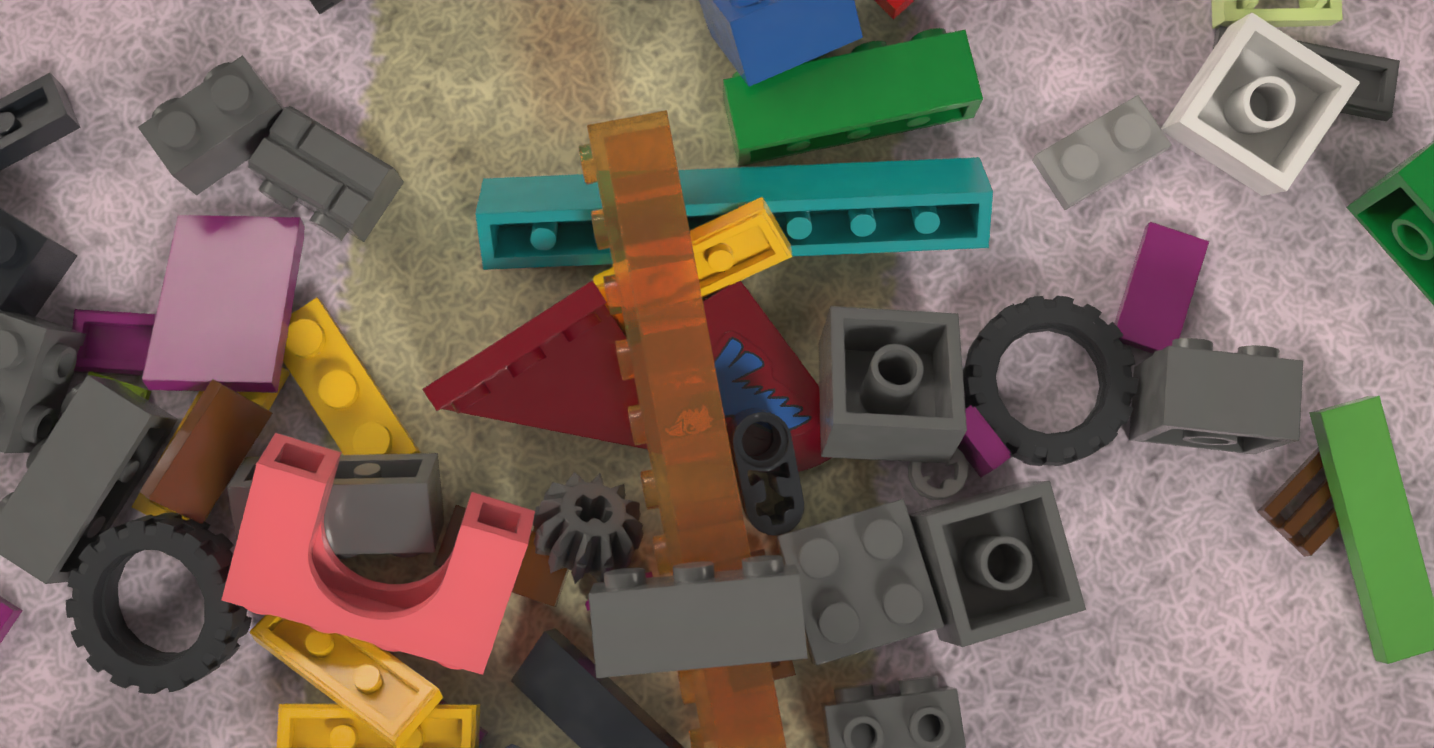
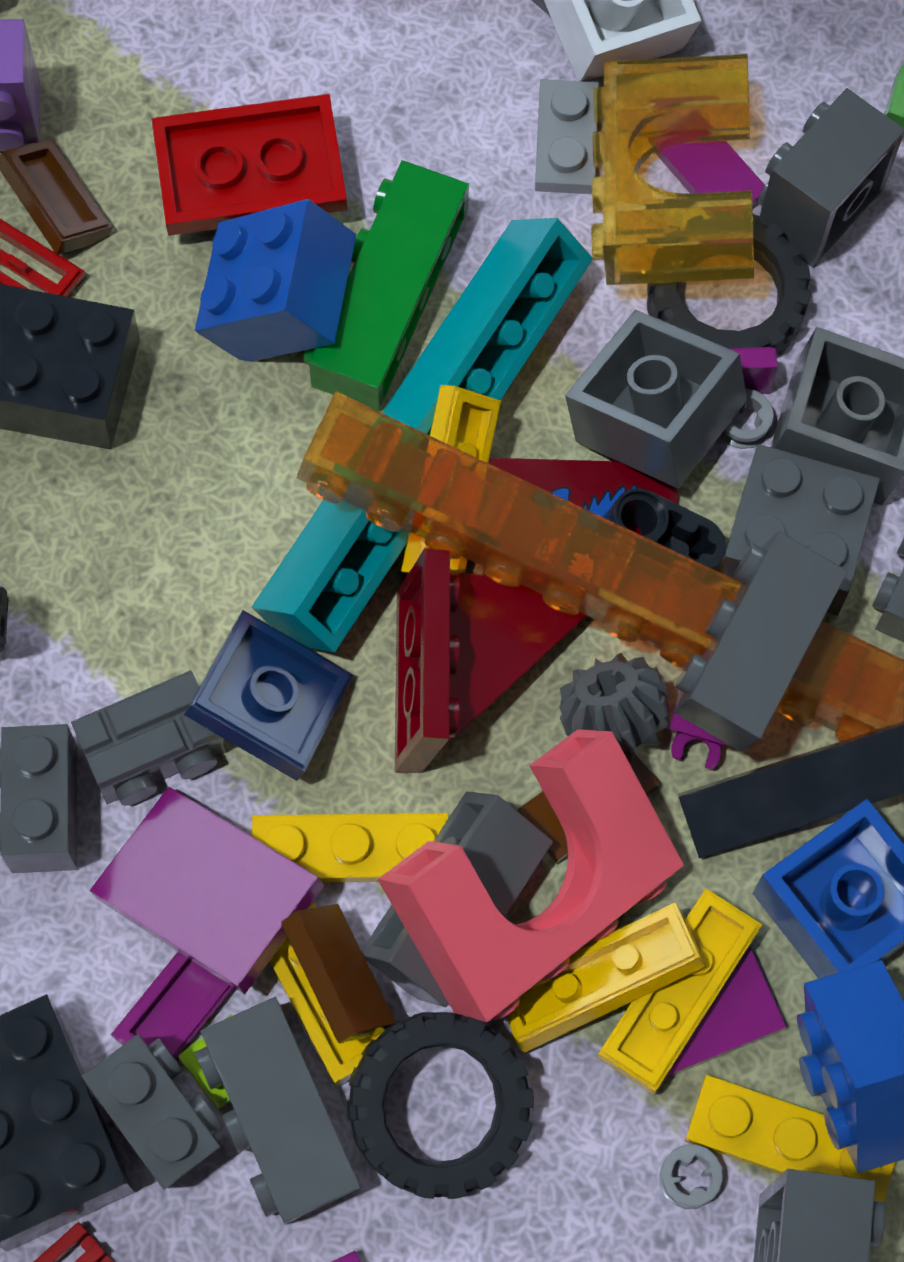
camera: 60 degrees left, 10 degrees down
(415, 242) = (269, 695): none -> dark blue tile
(1162, 197) = (657, 232): none -> clear yellow arch

